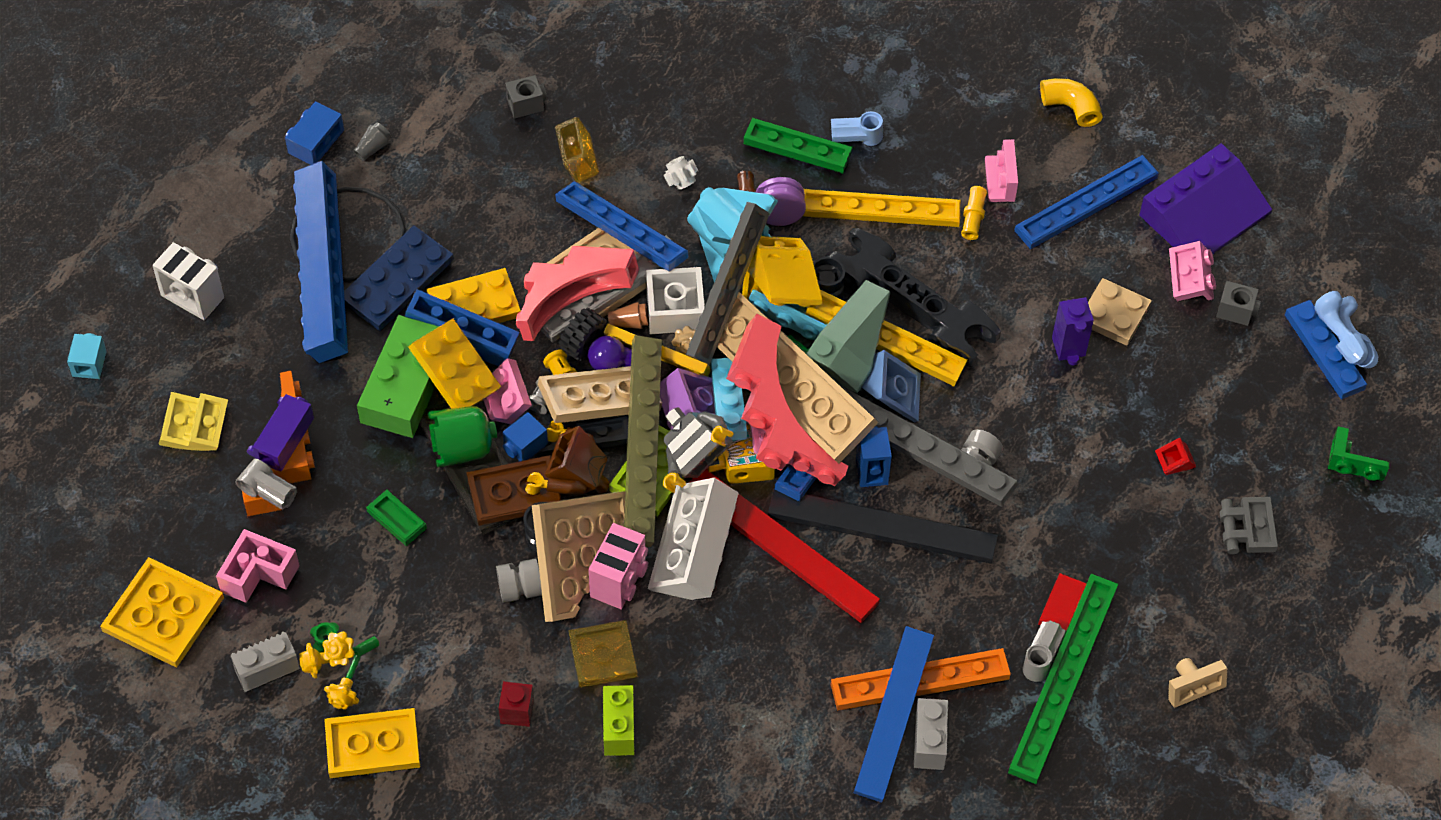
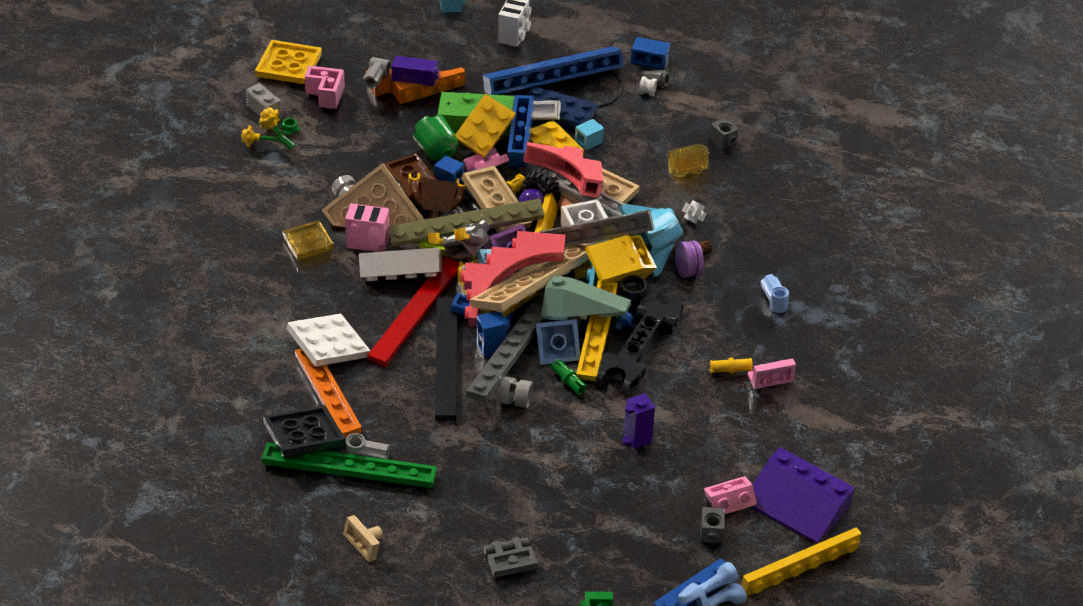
camera: 75 degrees right, 15 degrees down
(193, 422) = (423, 47): light yellow slope -> none
(372, 743) = (221, 156): yellow plate -> none
(391, 156) = (647, 86): none -> white wheel
(396, 517) = (382, 140): green tile -> none
(402, 296) = (546, 110): none -> white tile
(476, 252) = (589, 134): none -> medium azure brick
(516, 704) = (260, 207): dark red brick -> none
(618, 720) = (259, 252): lime brick -> none
(622, 226) = (633, 187): blue tile -> none
(797, 145) = (747, 267): green plate -> none
(826, 660) = (328, 339): none -> white plate
(882, 208) = (715, 317): yellow tile -> none
(893, 714) = (294, 376): blue tile -> none
(930, 734) = (283, 397): light grey brick -> none
(955, 392) = (568, 377): none -> green pin
(1002, 717) = (304, 431): none -> black plate
(1063, 601) = (412, 455): red tile -> none
(1073, 95) = (866, 404): yellow cylinder -> none
(1086, 202) = (773, 429): blue tile -> none
(1117, 311) = (677, 458): tan plate -> none
(1175, 457) = (560, 510): red slope -> none
(1305, 228) = (801, 561): none -> yellow plate

